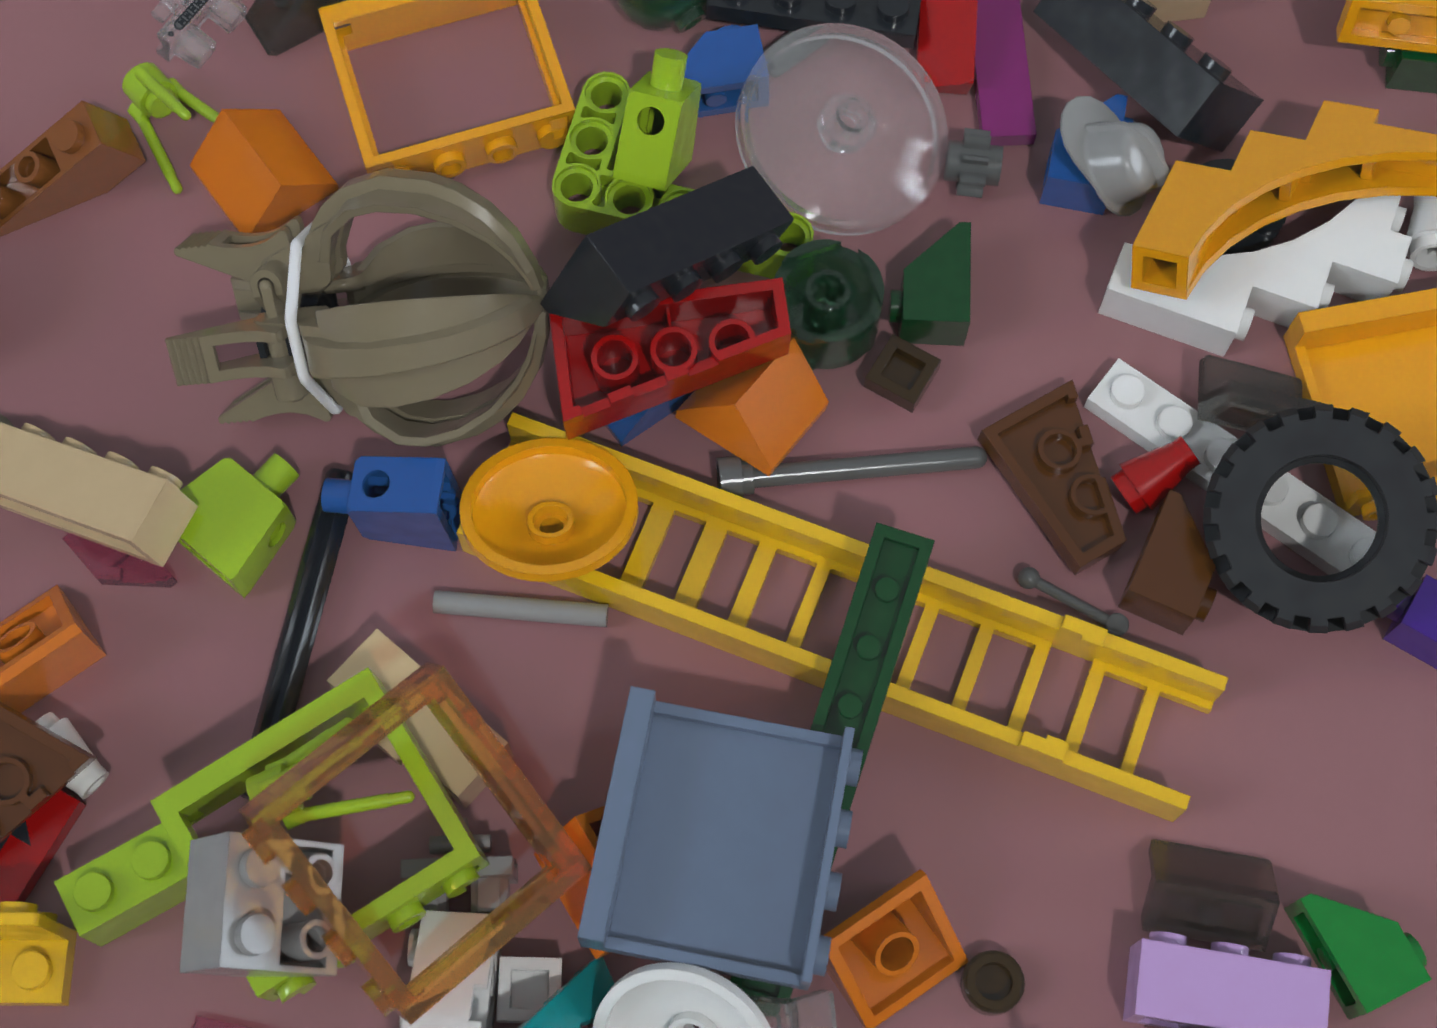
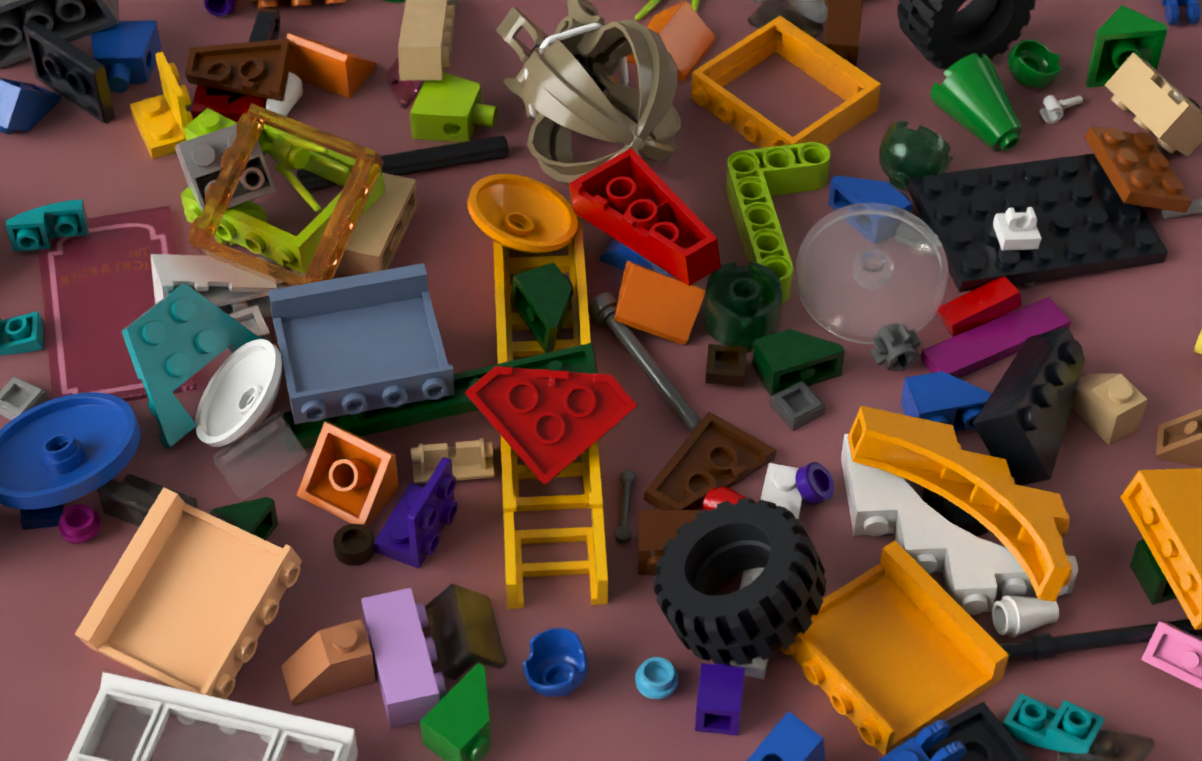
camera: 65 degrees right, 20 degrees down
(399, 500) = (495, 151): blue torso -> none
(520, 608) = (470, 250): light grey bar -> none
(659, 123) = (803, 178): lime torso -> none
(670, 250) = (701, 177): black slope -> none
(707, 552) = (542, 302): none -> dark green slope
(910, 792) = (468, 459): none -> tan hinge
(957, 631) = (550, 413): none -> red plate
(999, 321) = (797, 405): none -> dark grey tile
(1003, 876) = (419, 518): none -> dark purple bracket
(1114, 155) = (940, 390): light grey piece -> none
(1146, 360) = (814, 483): none -> dark purple tile
(1244, 394) = (830, 543): clear smoke panel -> none
(1320, 799) = (556, 663): none -> blue hair
(1367, 685) = (656, 678): none -> medium azure plate

